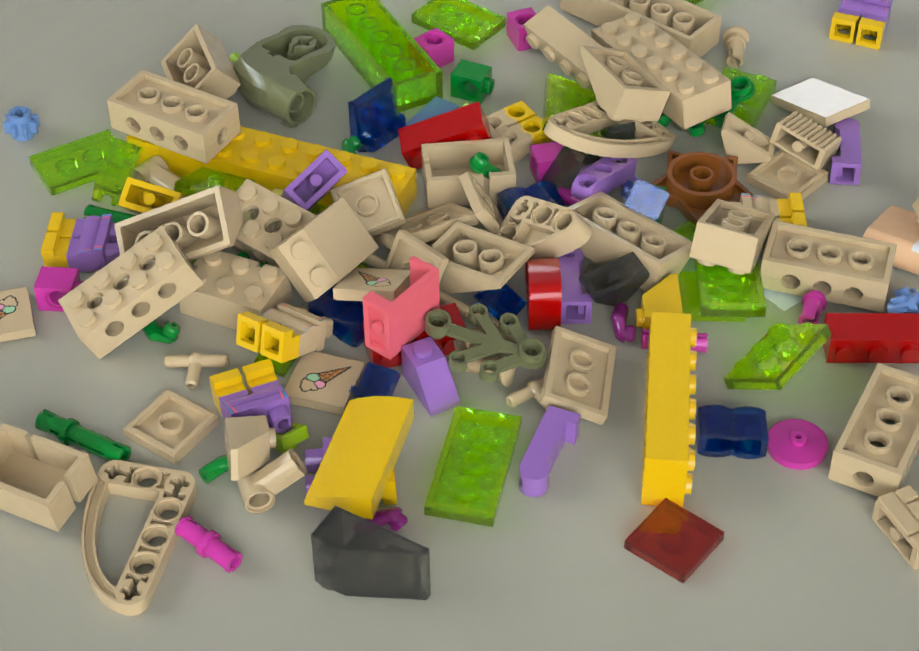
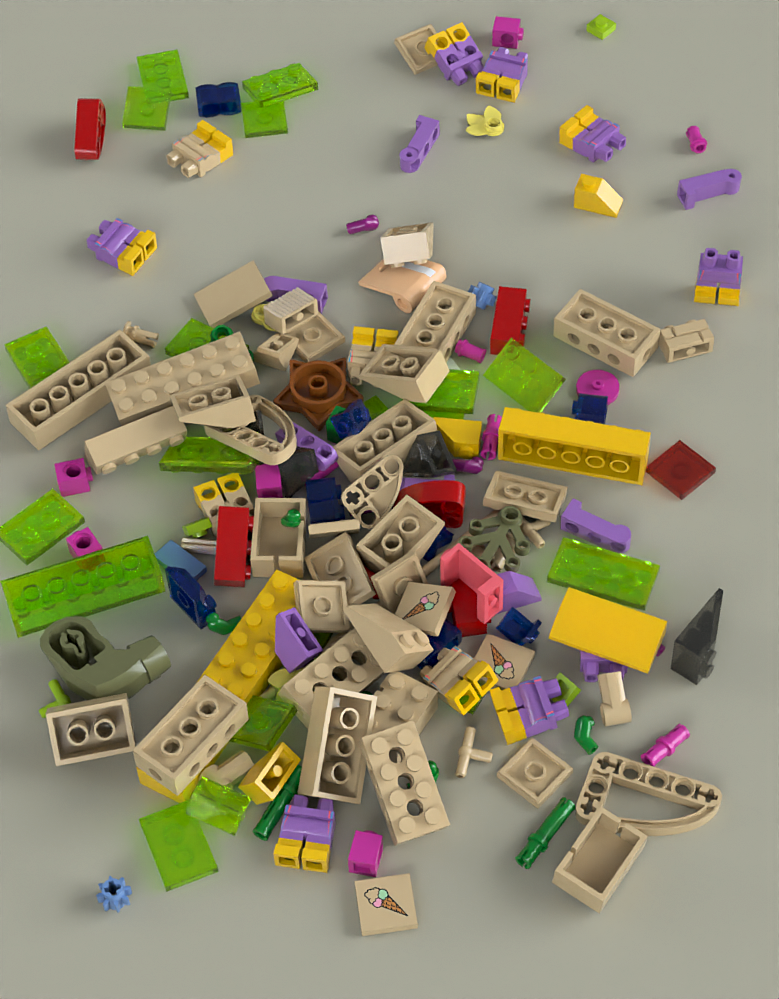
camera: 80 degrees left, 10 degrees up
(247, 444) = (590, 705): tan slope -> none
(471, 81) = (140, 523): green brick -> none

